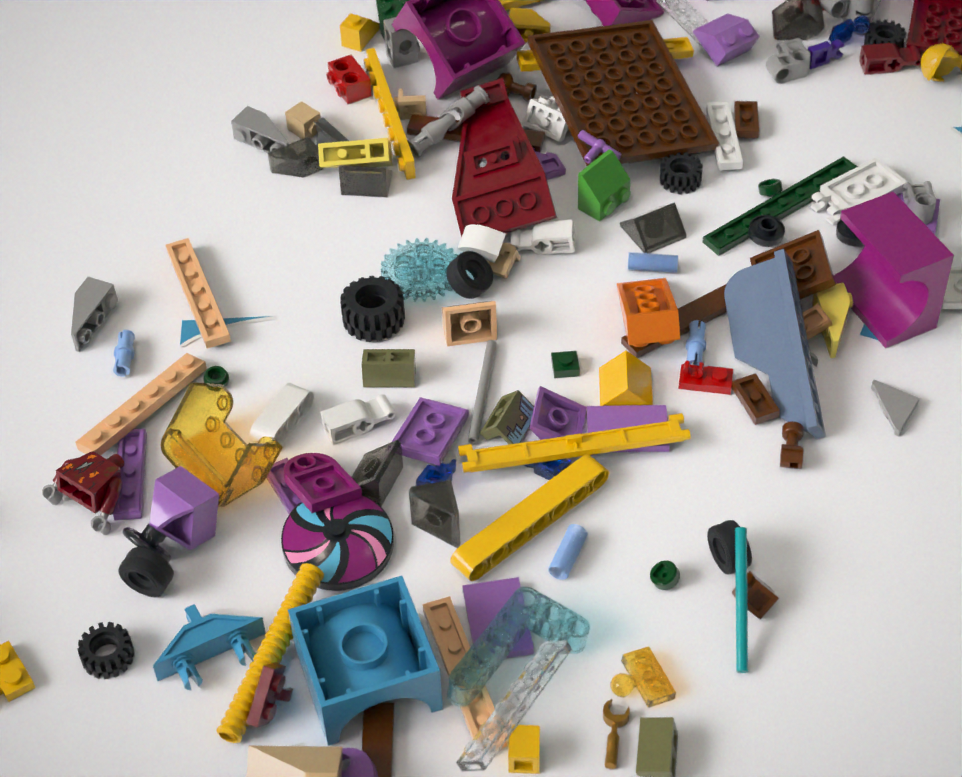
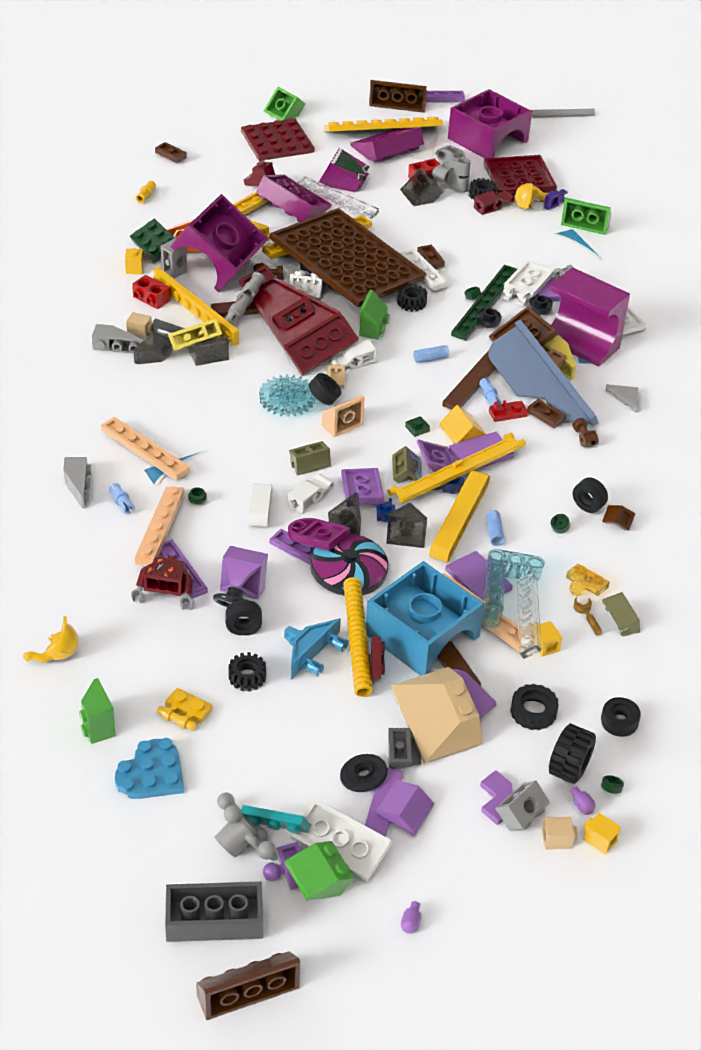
camera: 30 degrees left, 5 degrees down
(211, 449) = (217, 531): clear yellow windscreen -> none
(372, 308) = (275, 425): black tyre -> none
(410, 105) = (208, 297): tan bracket -> none
(482, 241) = (323, 363): white brick -> none
(482, 391) = (372, 446): light grey piece -> none
(598, 146) = (360, 290): medium lavender piece -> none
(649, 312) = (452, 380): orange slope -> none
(655, 228) = (417, 333): clear smoke slope -> none
(726, 37) = (387, 209): medium lavender slope -> none
(741, 600) = (618, 520): teal piece -> none
(790, 63) = (434, 215): light grey piece -> none
(823, 52) = (451, 206): dark purple plate -> none
(845, 29) = (456, 190): clear blue plate -> none

